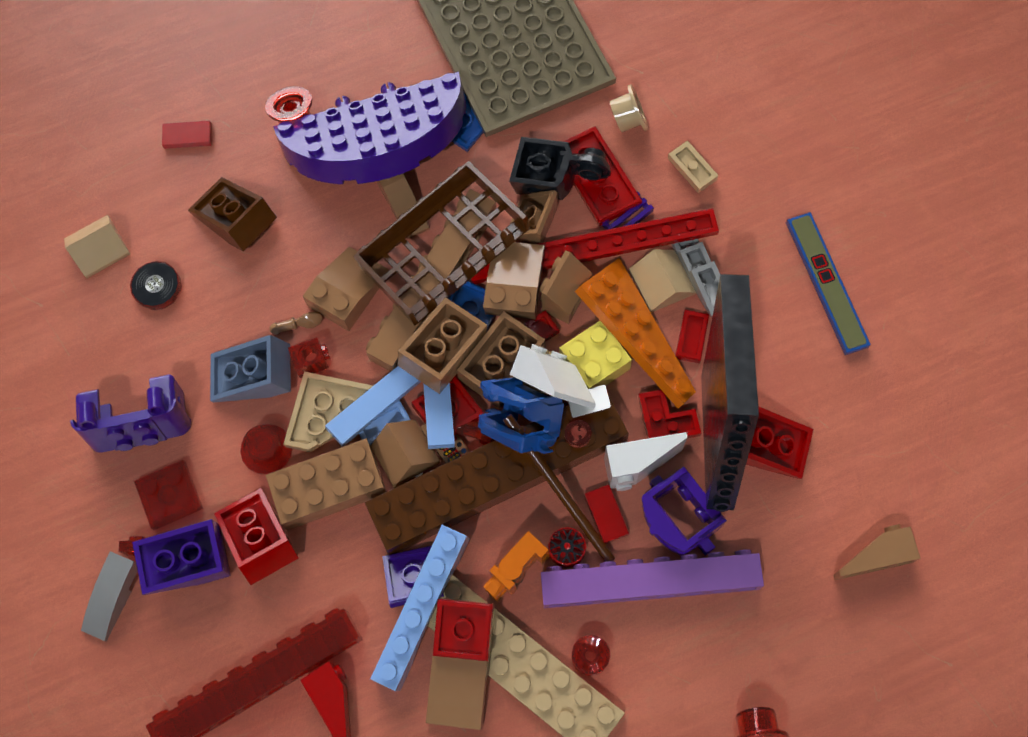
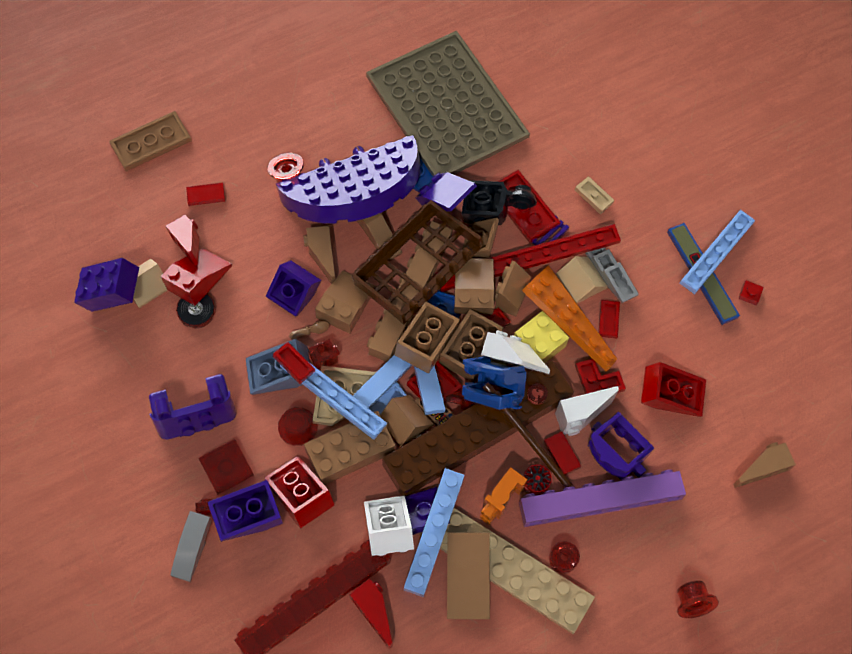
camera: 15 degrees left, 5 degrees down
(42, 246) = (106, 285): none -> dark purple brick
(126, 60) = (150, 141): none -> medium nougat tile
(152, 190) = (186, 237): none -> slope
(158, 240) = (194, 281): none -> red slope
(233, 213) = (250, 250): reddish brown slope -> none
(260, 368) = (293, 362): none -> red tile
(281, 265) = (292, 287): none -> dark purple slope
(309, 414) = (344, 403): none -> light blue tile
(323, 212) = (320, 249): none -> medium nougat slope
(359, 594) = (388, 525): none -> white slope
(463, 629) = (469, 544): red tile -> none
(490, 149) = (445, 190): none -> slope
(600, 397) = (536, 375): white sticker -> none
(628, 111) = (542, 157): tan piece -> none
(729, 392) = (649, 353): black panel -> none
(850, 255) = (717, 252): none -> light blue tile
(890, 314) = (751, 292): none -> red plate

